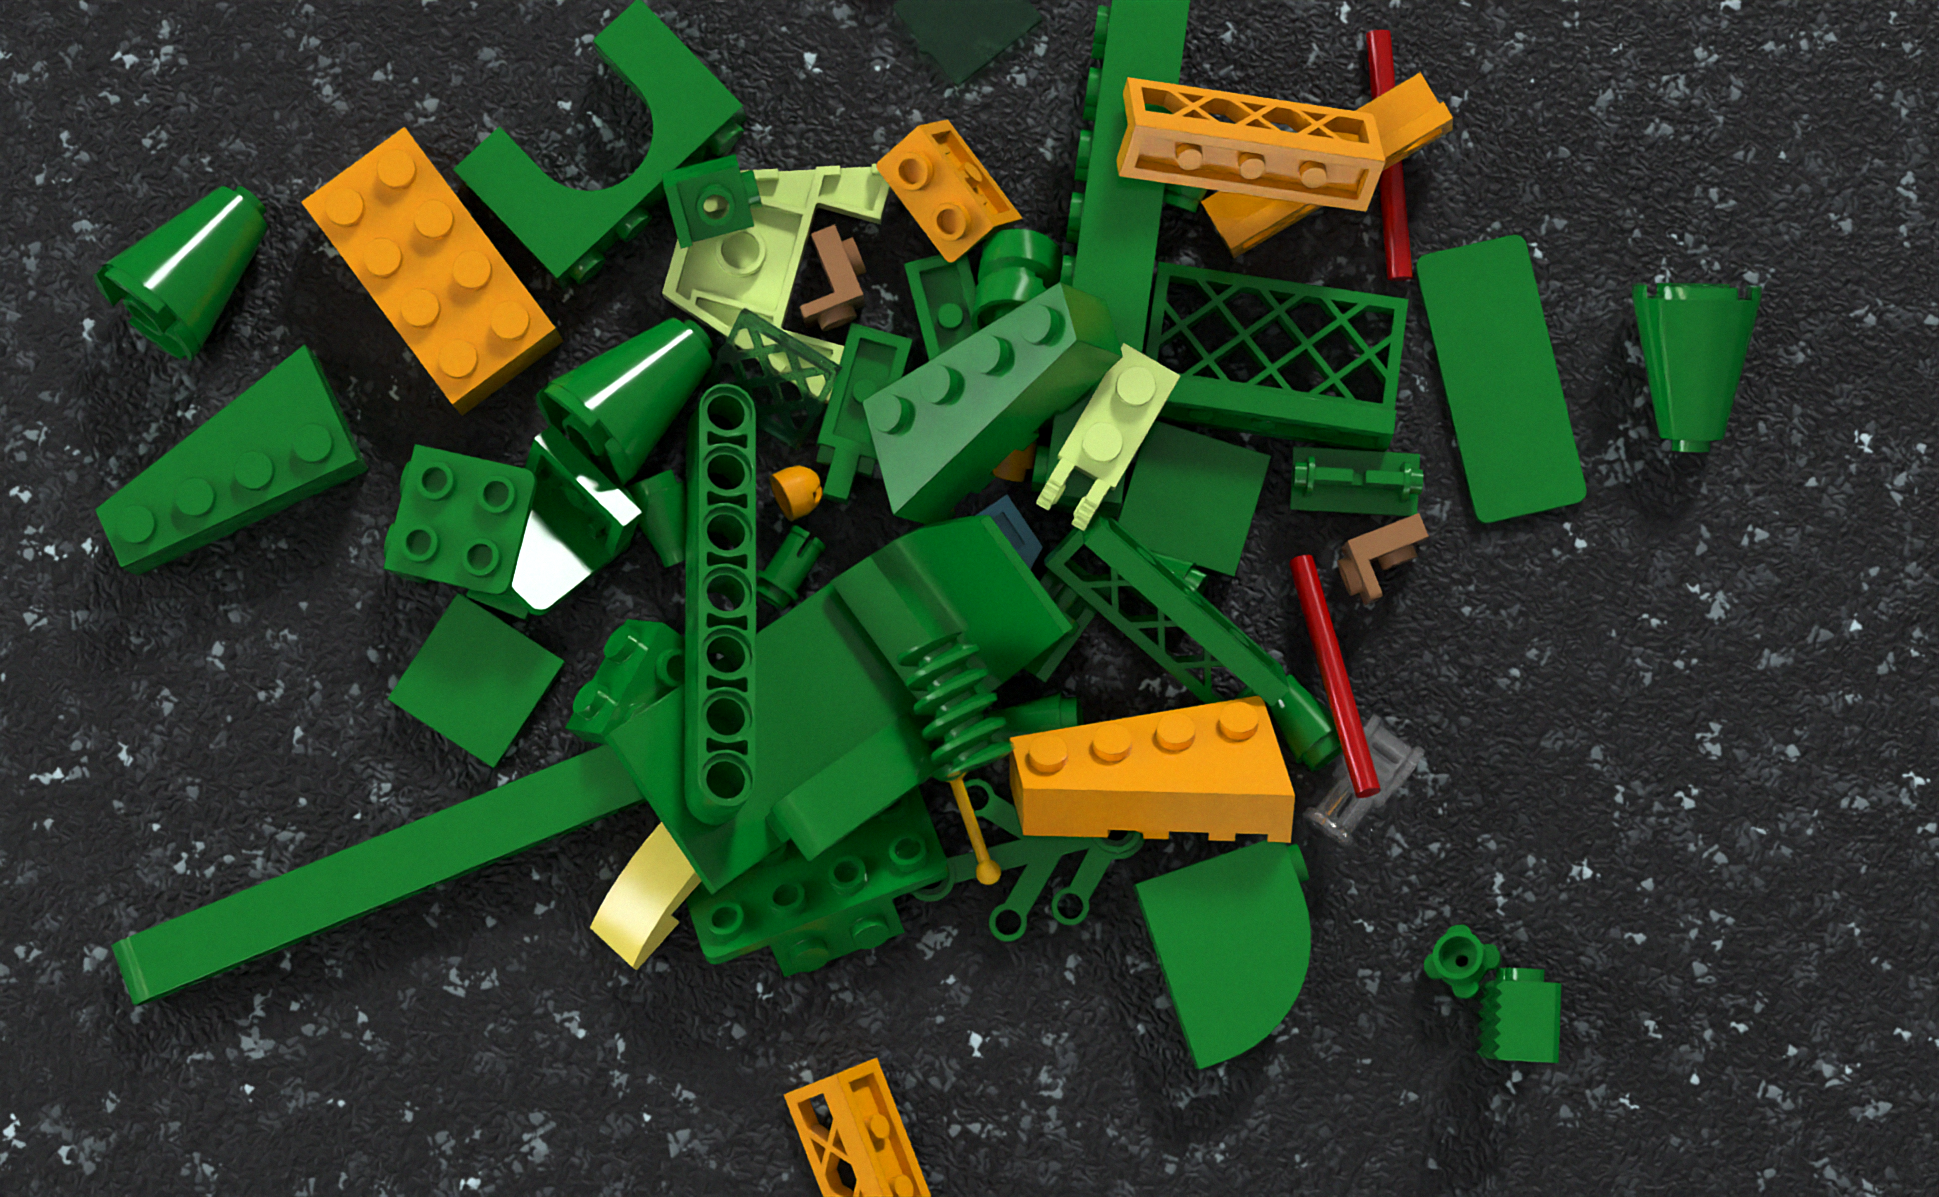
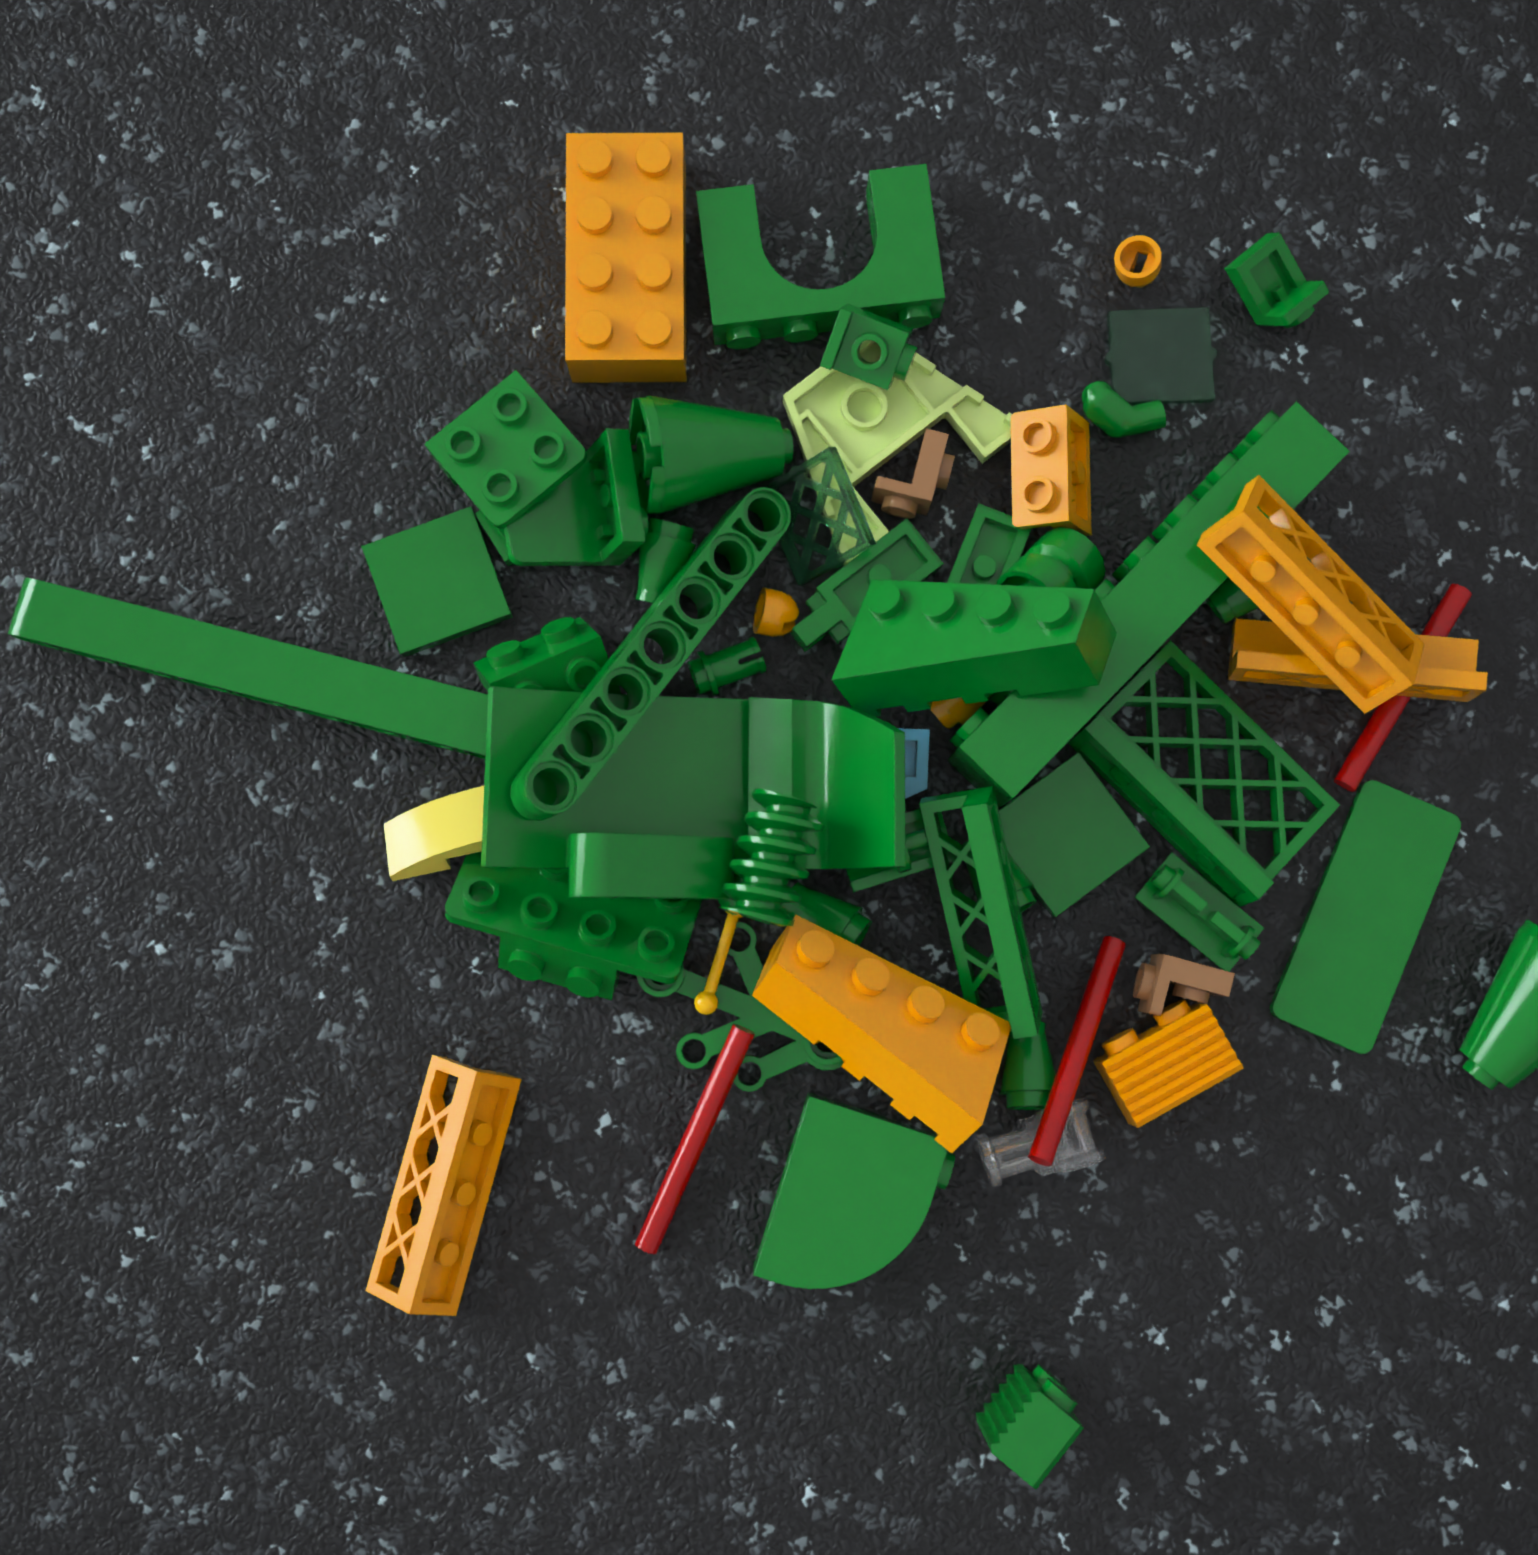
camera: 35 degrees right, 0 degrees up
(186, 270) = (450, 126): green cone -> none
(241, 465) = (379, 298): green wedge -> none
(965, 96) = (1116, 415): none -> green arm
(1064, 996) = (694, 1139): none -> red bar
(1111, 430) = (1046, 736): yellowish green hinge -> none
(1419, 631) = (1166, 1062): none -> light orange brick
(1449, 948) = (1015, 1321): green plate -> none

